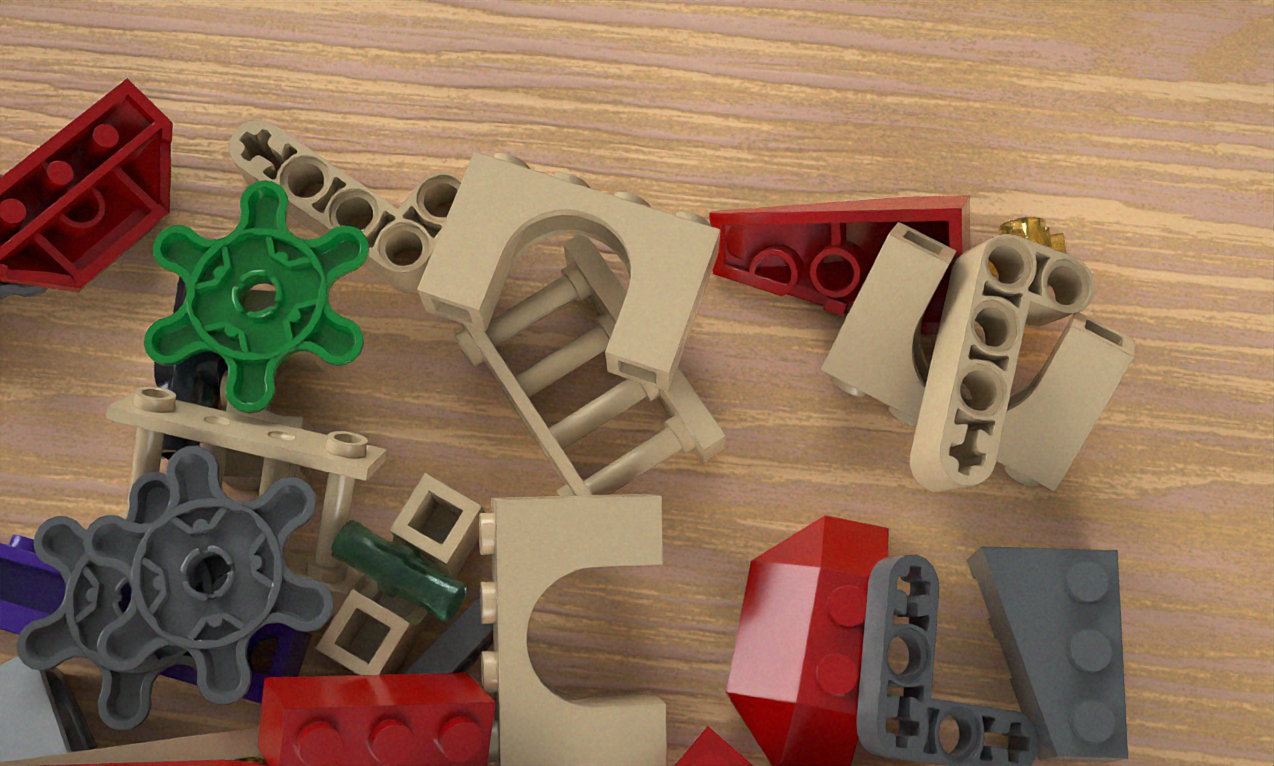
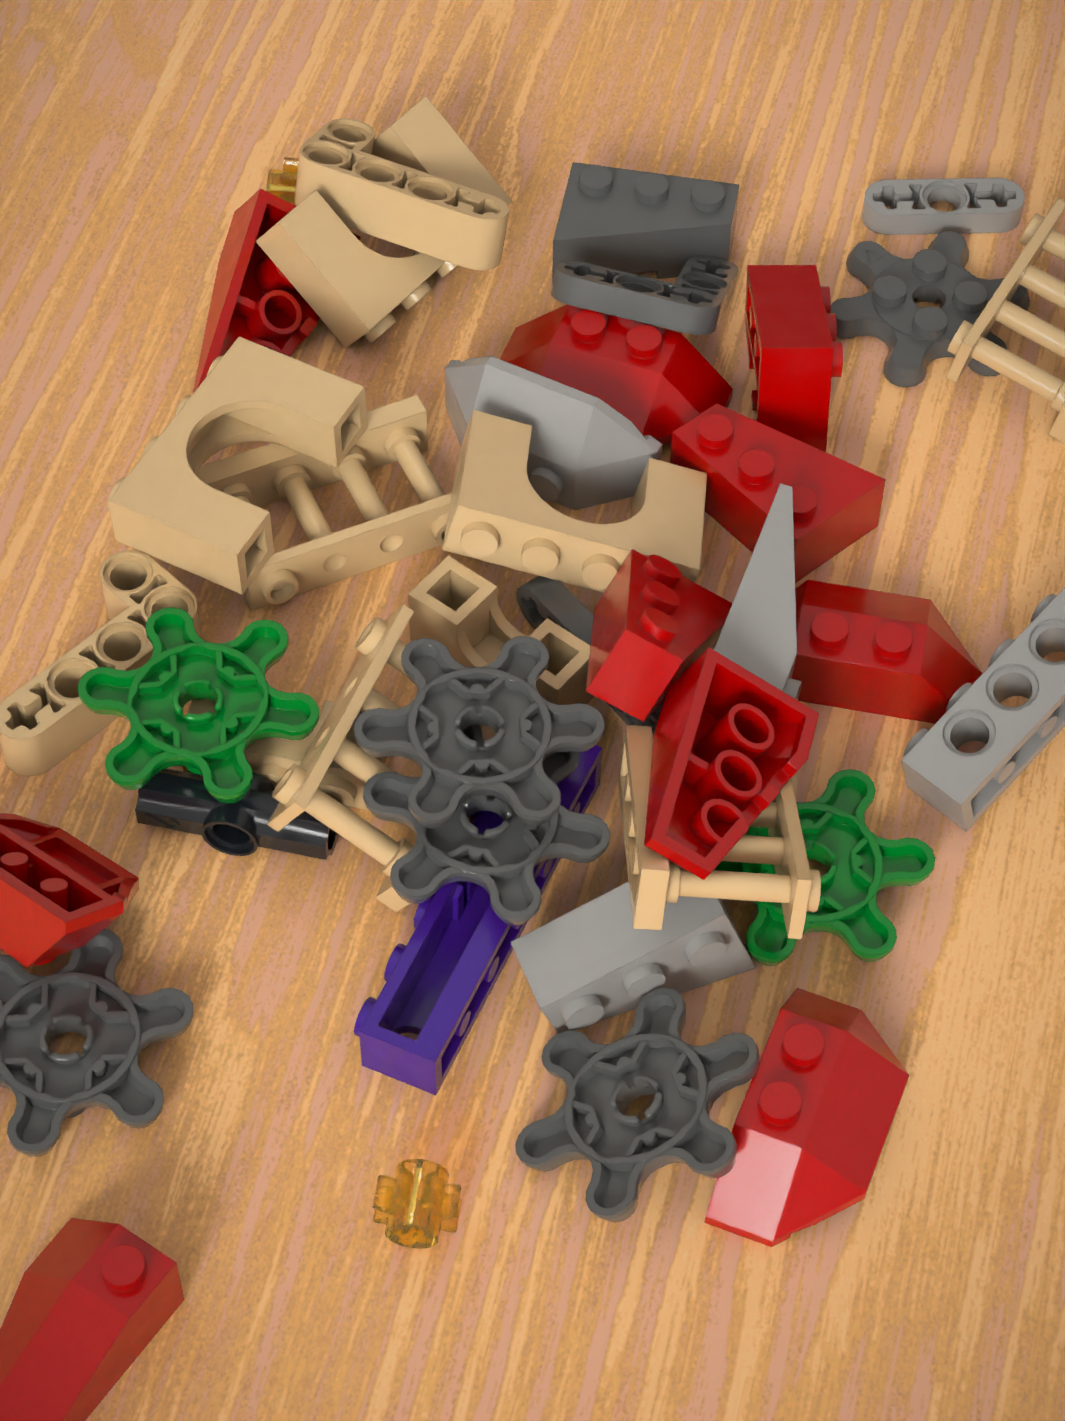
camera: 85 degrees left, 20 degrees down
(399, 570) = (500, 621): clear green pin -> none
(703, 579) = (578, 444): none -> light grey wedge

